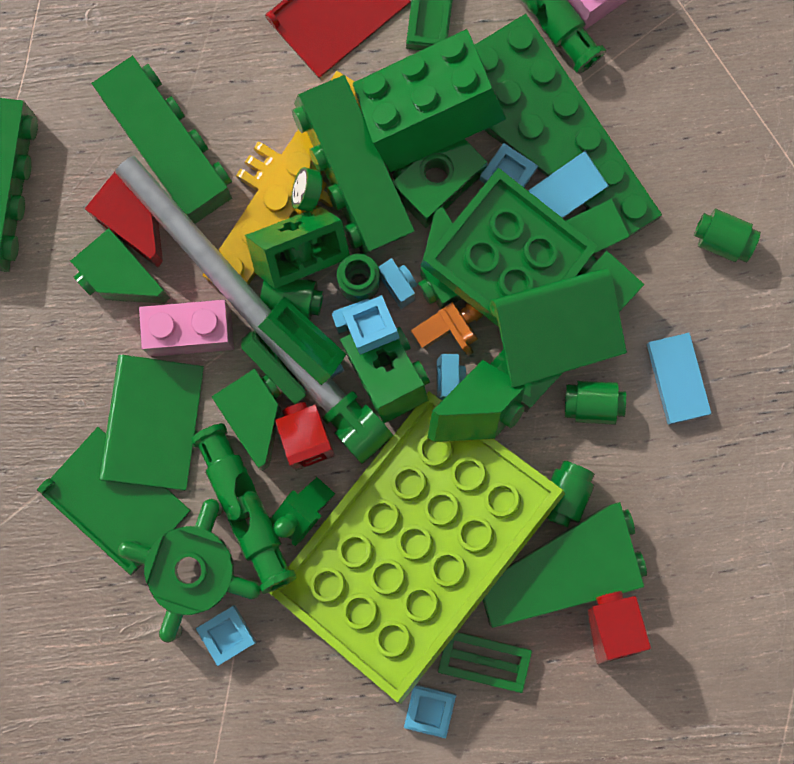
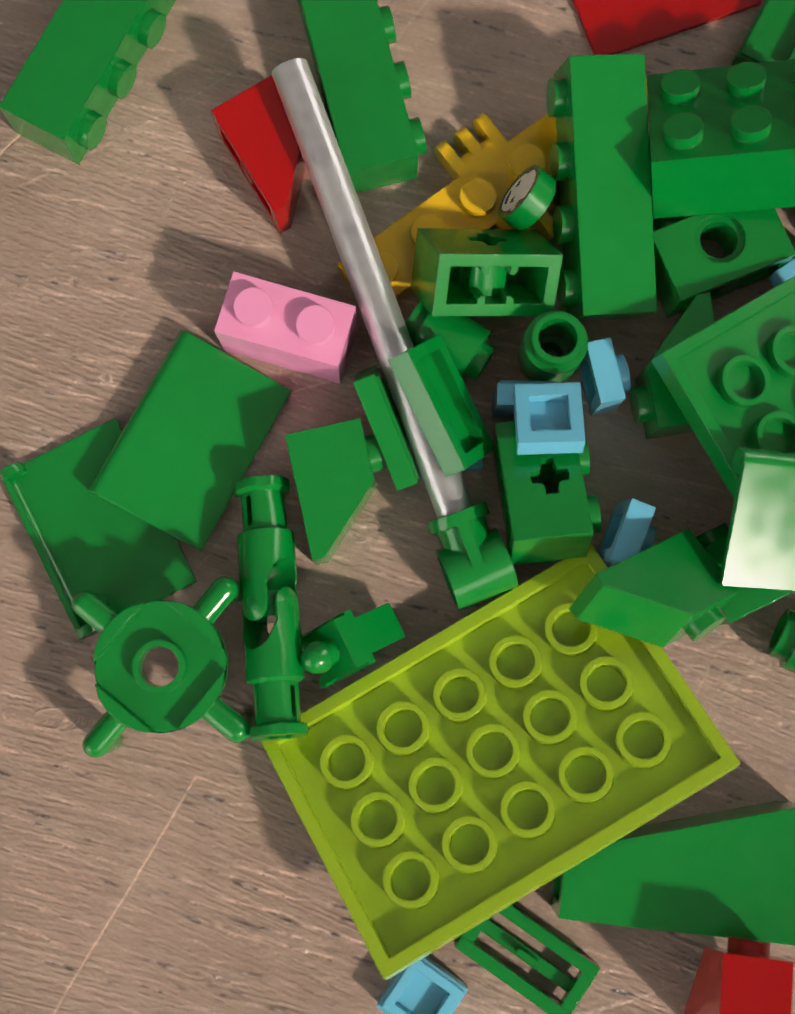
camera: 20 degrees right, 0 degrees up
(115, 272) = (219, 215): green slope -> none
(226, 635) = (177, 776): medium azure plate -> none
(304, 436) = (393, 539): red slope -> none
(446, 321) = (655, 455): orange piece -> none
(577, 486) = (758, 756): green brick -> none

